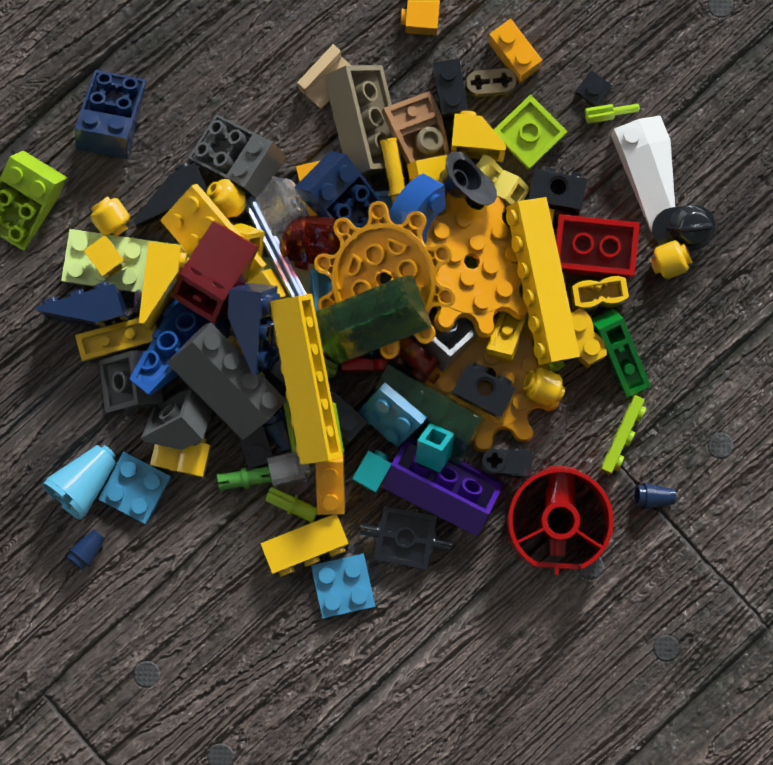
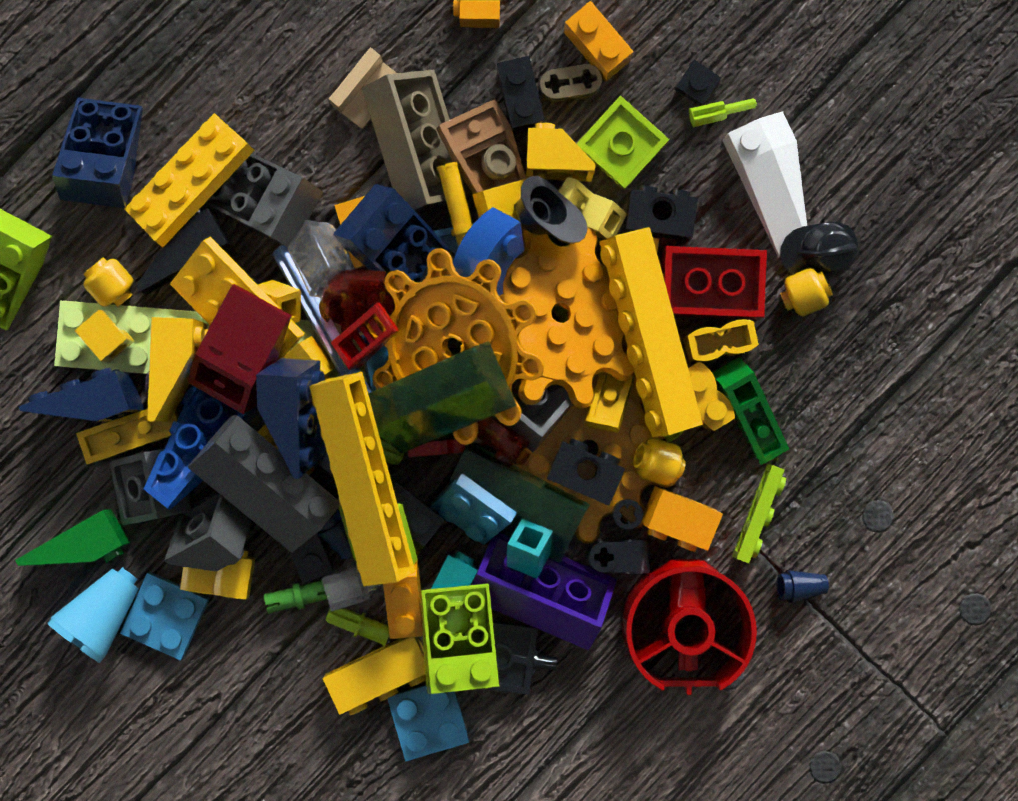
camera: 10 degrees left, 5 degrees up
(75, 423) = (86, 542): none -> green slope
(85, 550) = (109, 697): dark blue cone -> none
(180, 139) = (188, 180): none -> yellow plate
(227, 197) = (251, 250): yellow head -> none
(296, 273) = (347, 350): none -> red slope
(373, 517) = (458, 639): none -> lime slope
(524, 428) = (638, 513): none -> black bush
(558, 434) = (680, 518): none -> light orange brick

